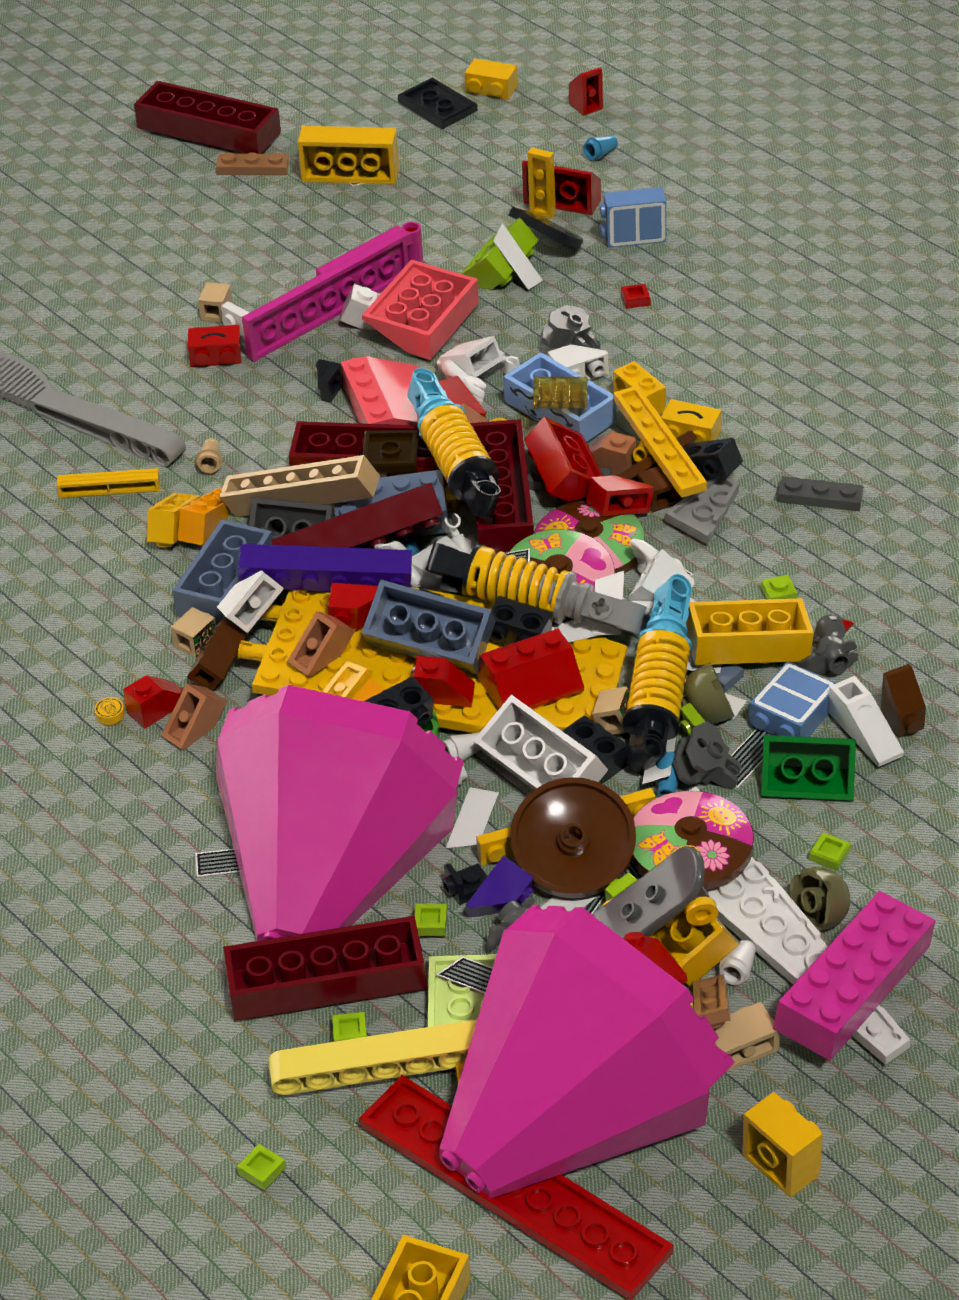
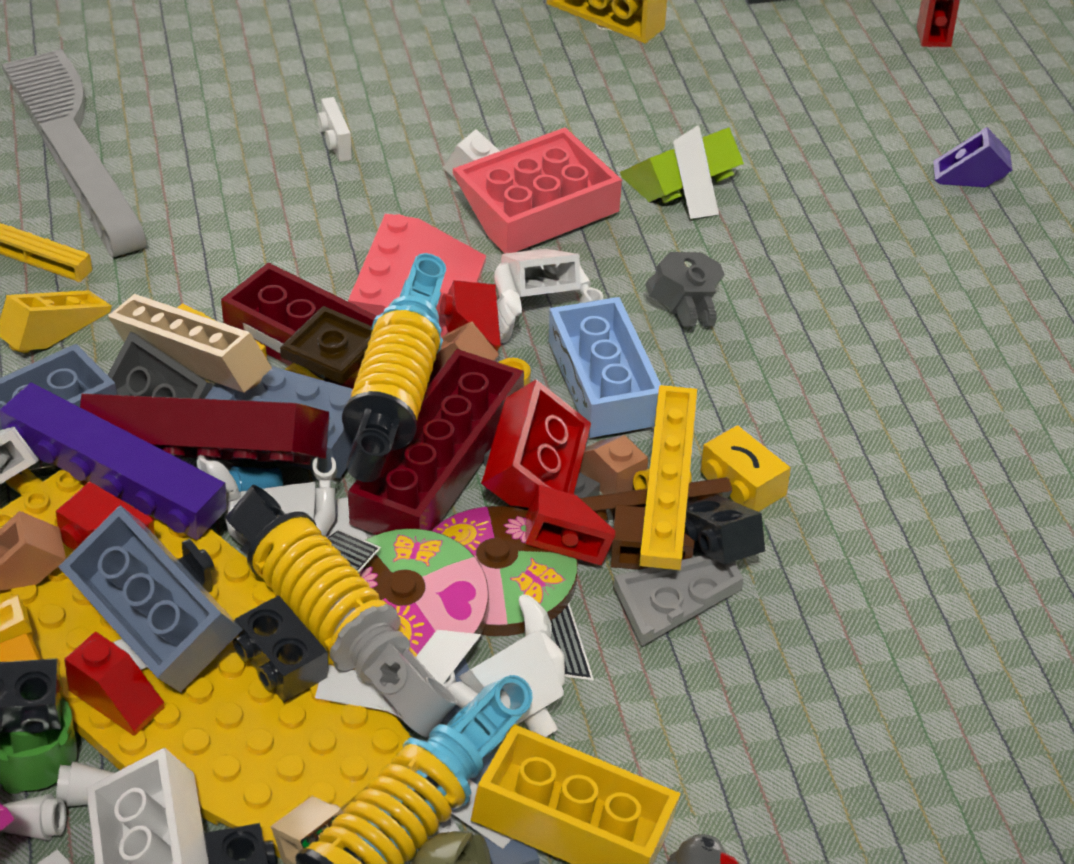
camera: 25 degrees right, 0 degrees up
(201, 518) = (69, 326): light orange slope -> none
(209, 457) = (158, 265): tan cone -> none
(211, 300) = (327, 85): tan brick -> none
(214, 345) = (283, 141): red brick -> none
(322, 298) = (430, 132): dark pink hinge -> none
(329, 379) = (363, 231): black bracket -> none
(531, 670) = (238, 724): red slope -> none
(541, 182) = (789, 97): yellow plate -> none
(547, 227) = (764, 153): black tile -> none
(560, 393) = (589, 358): clear yellow brick -> none
(574, 189) = (818, 115): red slope -> none
(582, 360) = (669, 331): white slope -> none
(598, 147) = (907, 85): dark azure cone -> none
(633, 375) = (716, 396): yellow brick -> none
(634, 217) = (874, 180): medium blue brick -> none
(635, 296) = (812, 277): red tile -> none
(684, 181) = (974, 162): none -> dark purple slope
(778, 588) = (684, 760): lime plate -> none
(820, 493) = (848, 643): dark grey plate -> none

